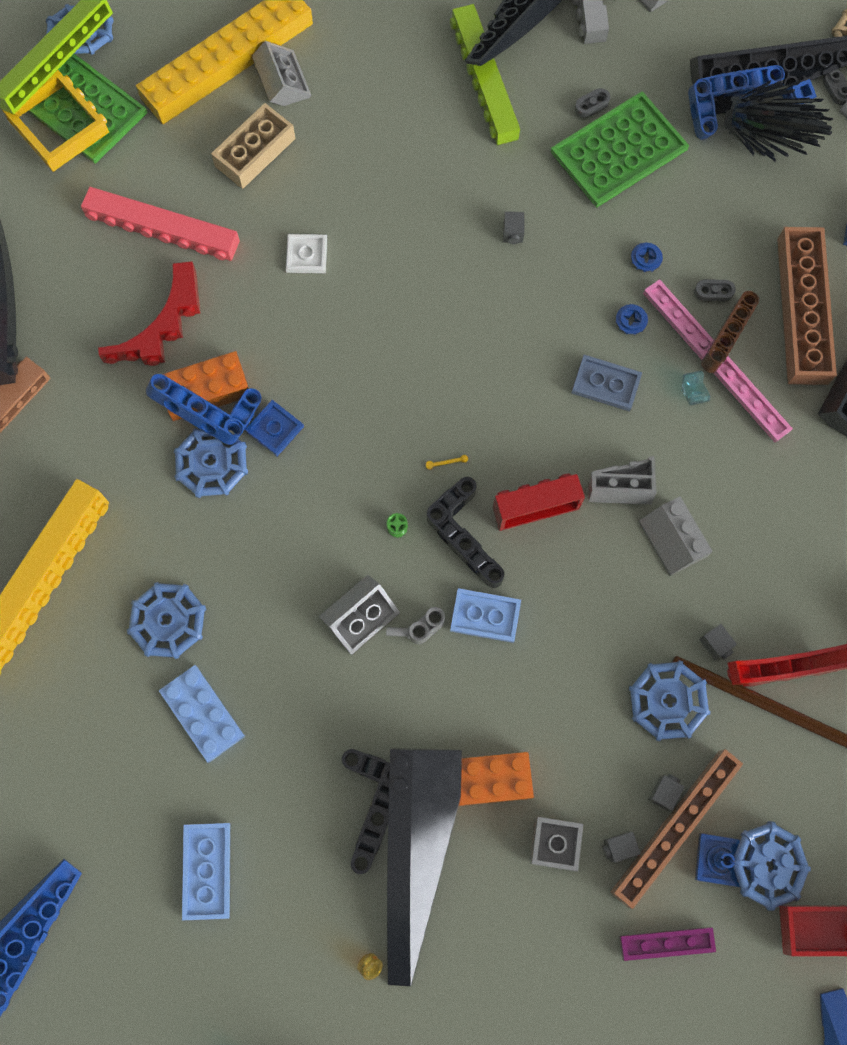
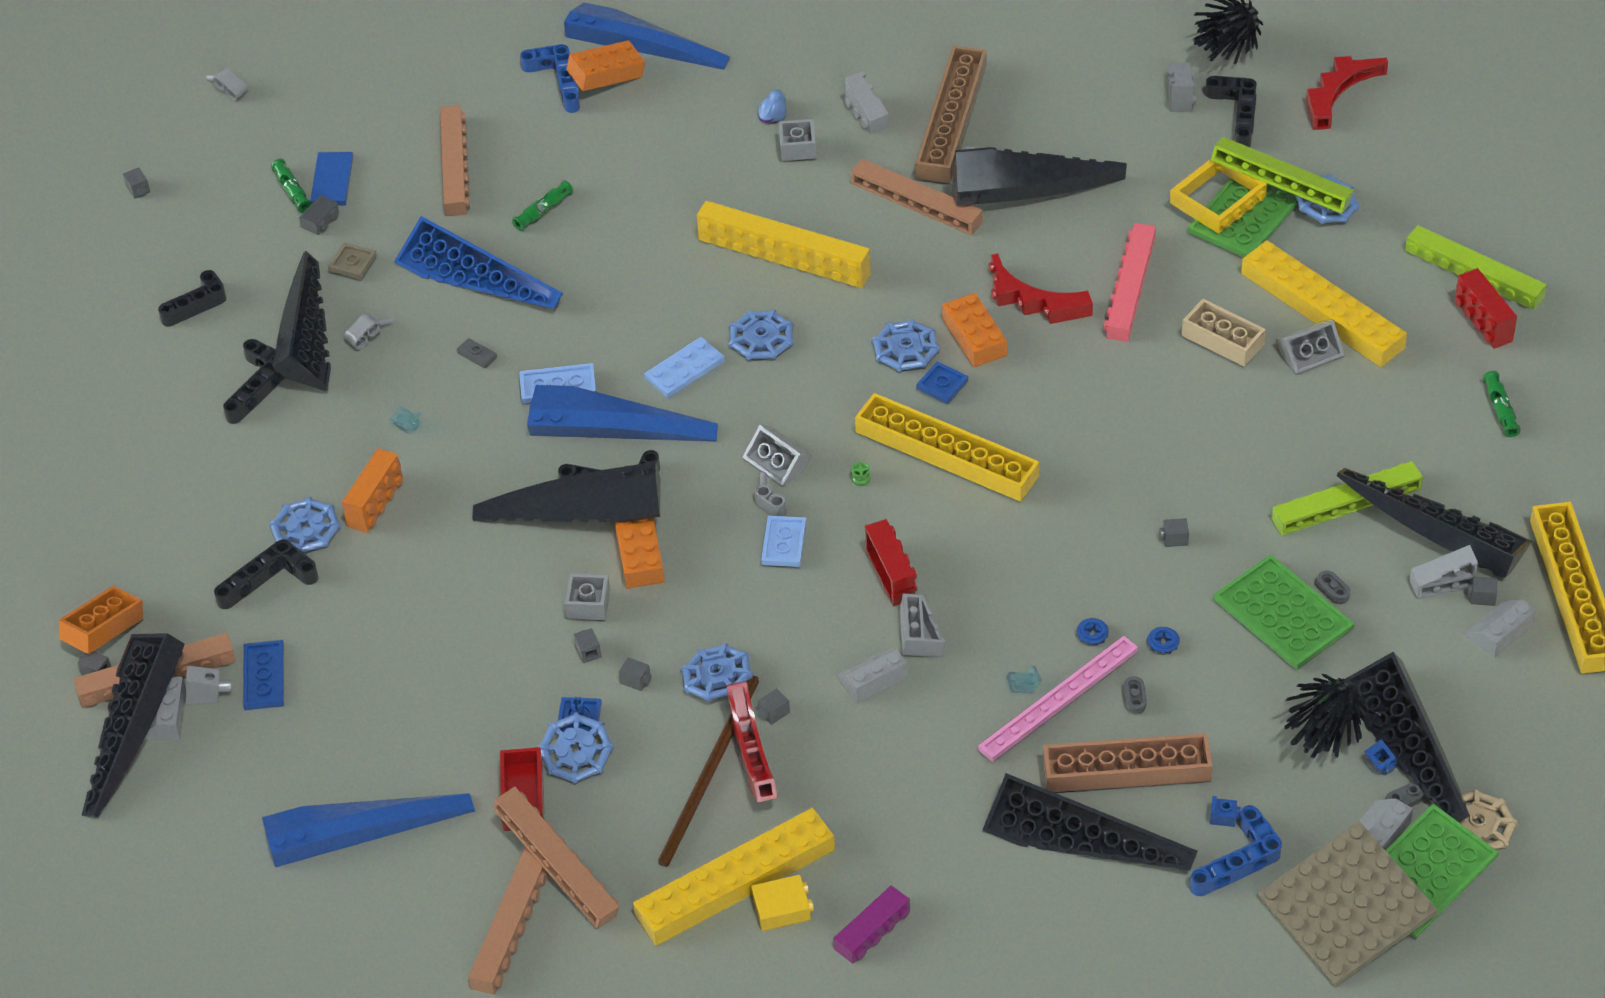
camera: 90 degrees right, 25 degrees down
(134, 977) = (476, 353): none -> dark grey plate
(209, 417) = (944, 351): blue beam -> none
(263, 840) = (590, 414): none -> blue wedge
(306, 253) = (1122, 388): white tile -> none
(369, 966) = (486, 490): clear yellow tile -> none
(374, 431) = (947, 447): none -> yellow brick
(430, 465) = (922, 495): yellow hinge -> none
(453, 534) = (851, 516): black beam -> none
(606, 383) = (1021, 614): sand blue plate -> none
(667, 944) = (508, 682): magenta plate -> none
(676, 828) = (605, 678): nougat brick -> none
(703, 103) = (1345, 666): blue beam -> none
(730, 331) = (1091, 707): reddish brown beam -> none

